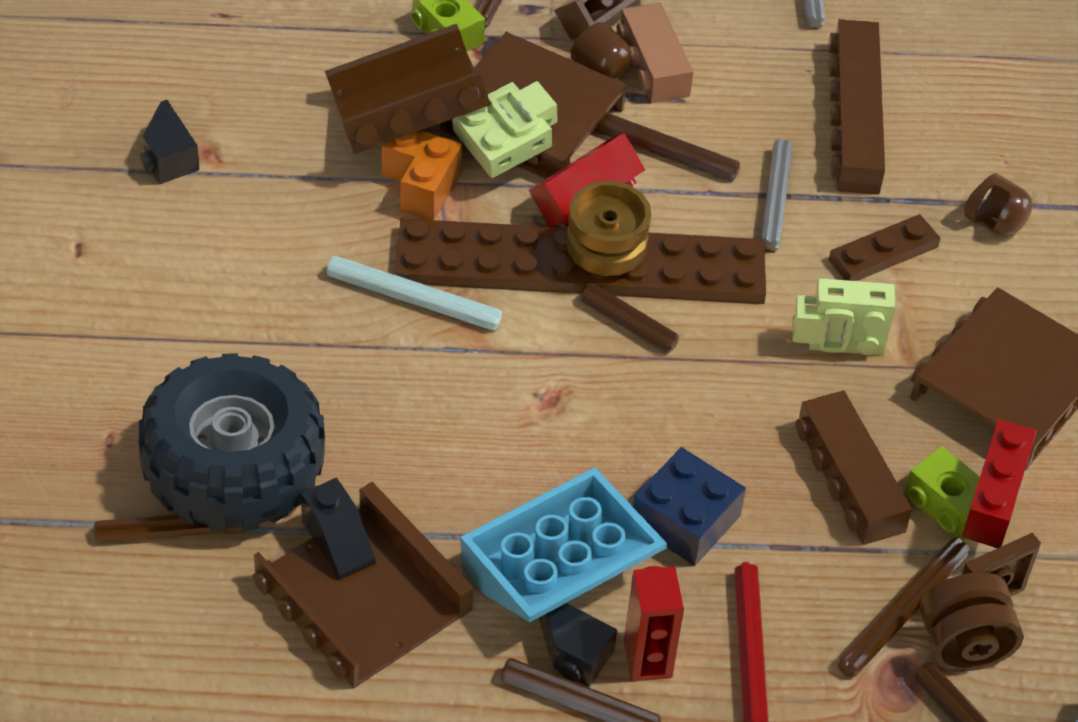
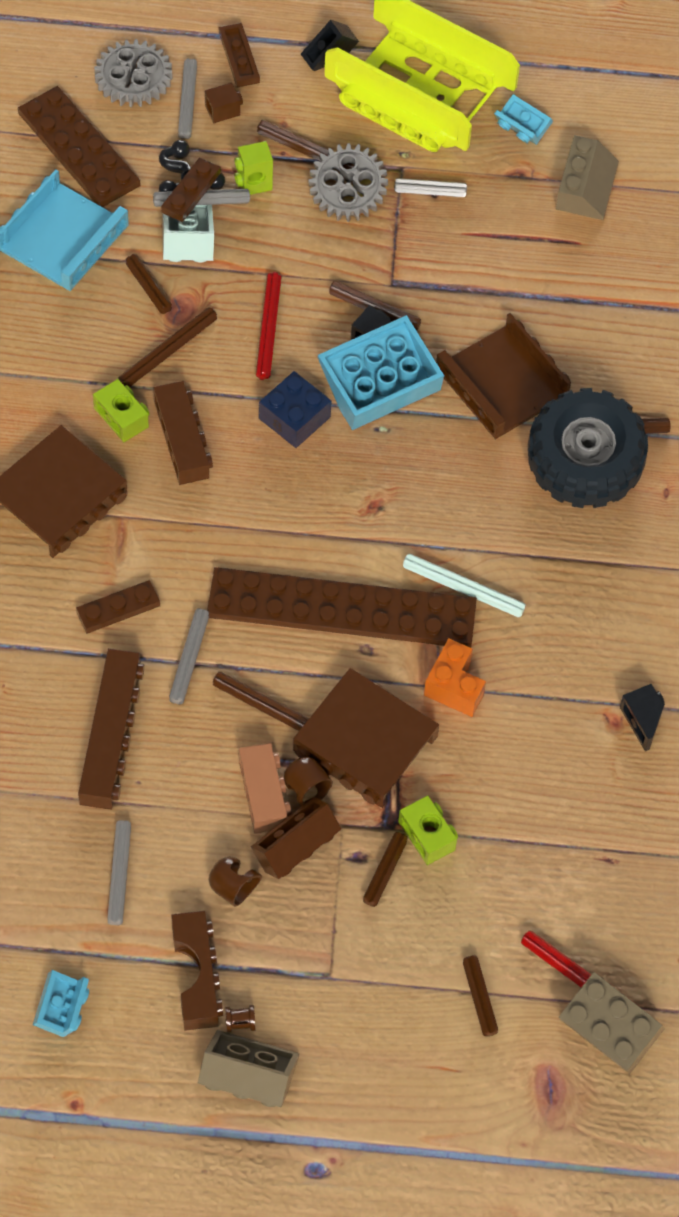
camera: 175 degrees left, 10 degrees up
(336, 528) = (519, 406): black slope -> none
(406, 88) = (463, 721): reddish brown panel -> none
(510, 128) = (393, 686): yellowish green piece -> none
(607, 162) = (332, 658): red brick -> none
(608, 228) = (325, 593): pearl gold wheel -> none
(630, 317) = (312, 557): reddish brown axle -> none
(653, 623) = (332, 311): red brick -> none
(847, 321) = (165, 523): yellowish green piece -> none
(971, 622) = (135, 313): reddish brown wheel -> none
(999, 484) = (97, 383): red brick -> none
(1005, 202) = (19, 623): reddish brown helmet -> none
(1010, 562) = (111, 341): reddish brown tile -> none

